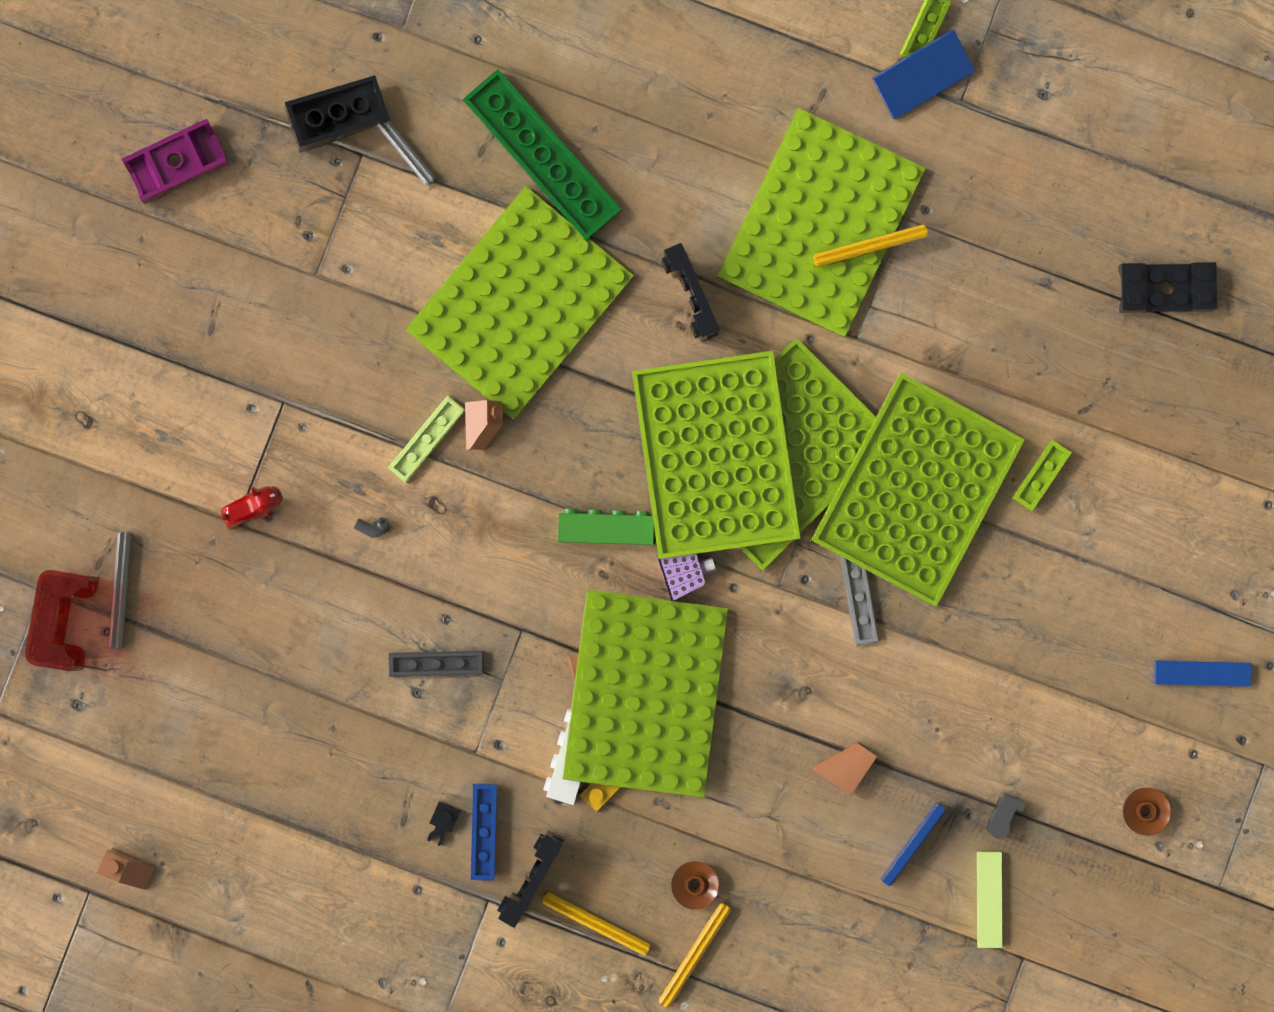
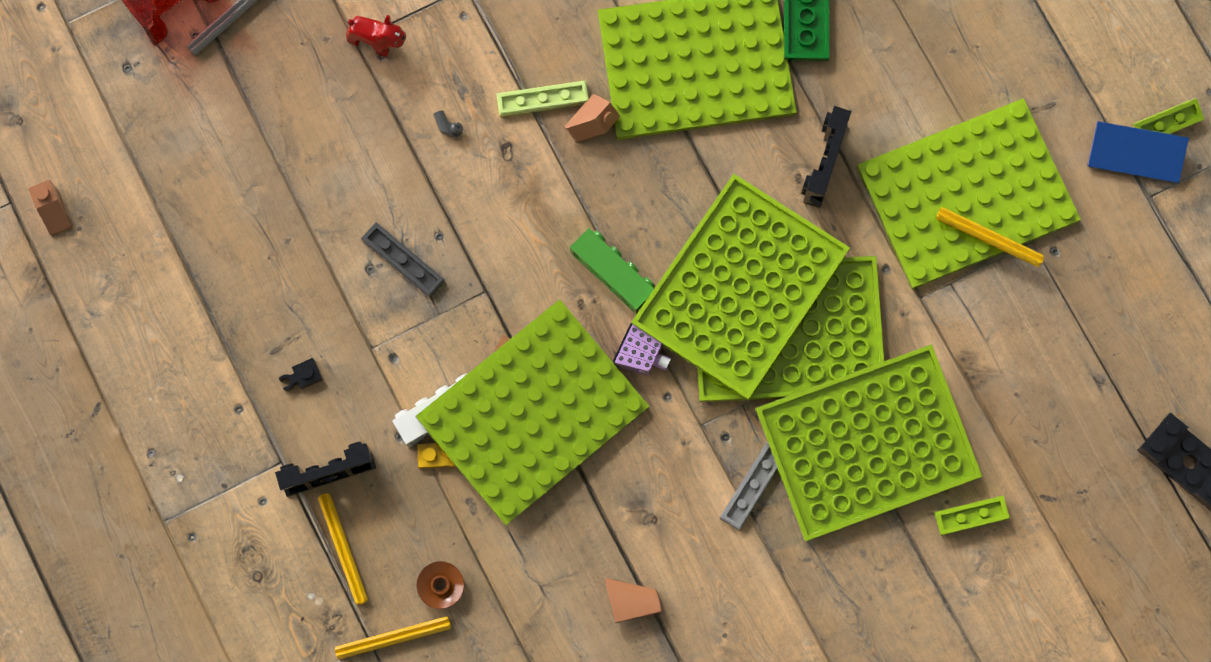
camera: 40 degrees right, 10 degrees down
(483, 831) = (324, 408): blue plate -> none

